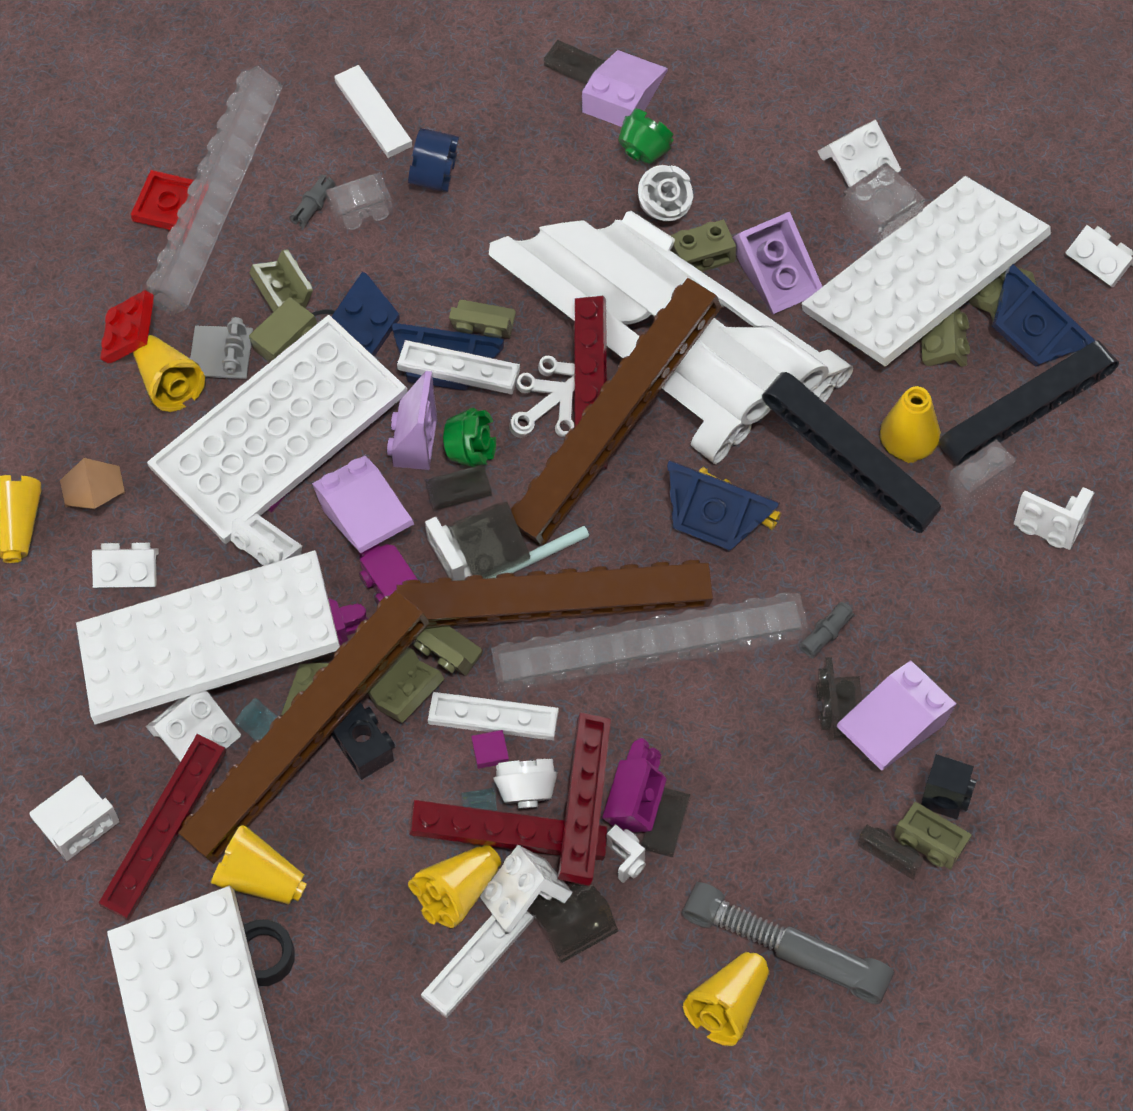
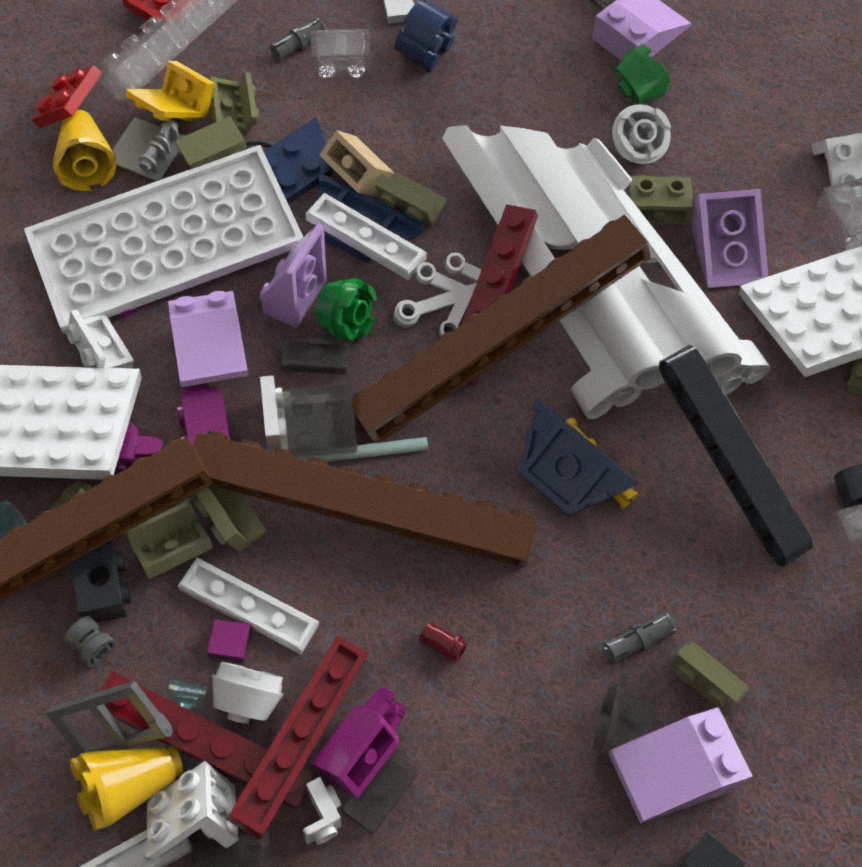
camera: 15 degrees right, 0 degrees up
(230, 292) = (182, 96): none -> yellow bracket
(375, 789) = (89, 641): none -> dark grey wheel
(413, 827) = (95, 702): none -> dark grey window
(421, 303) = (355, 162): none -> tan brick
(649, 642) = (443, 584): clear brick -> none
(668, 688) = (444, 642): none -> dark red pin
(893, 641) = (708, 677): none -> olive bracket
(911, 426) = (811, 449): yellow cone -> none

